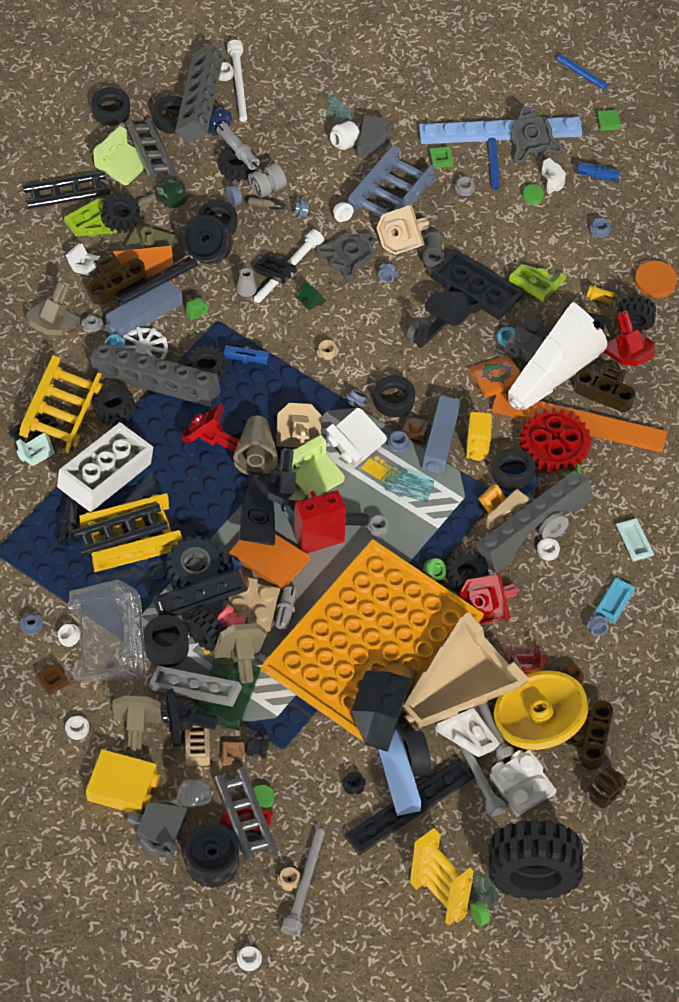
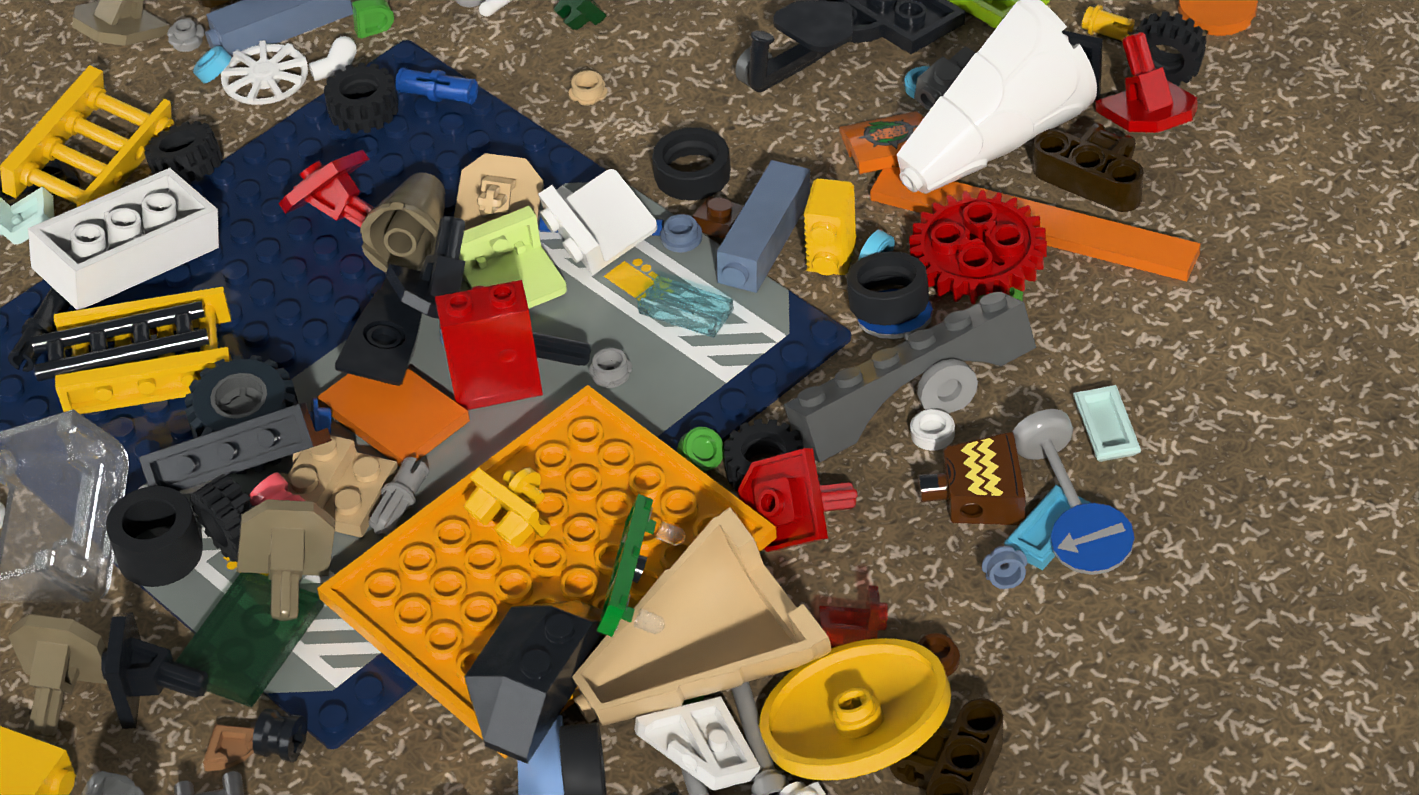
camera: 15 degrees right, 10 degrees down
(155, 374) = (265, 106): dark grey brick -> none
(183, 338) = (340, 55): none -> white arm
(196, 686) = (187, 616): light grey plate -> none
(197, 759) = (169, 751): tan slope -> none
(356, 398) = (622, 162): sand blue plate -> none
(358, 620) = (520, 516): none -> yellow hips
(421, 644) = (629, 568): none -> green piece
(492, 498) = (840, 339): light orange tile -> none
(503, 444) = (877, 243): none -> medium azure tile
(509, 507) = (860, 348): tan slope -> none
(578, 579) = (979, 482): none -> reddish brown torso
(636, 605) = (1089, 535): none -> piece

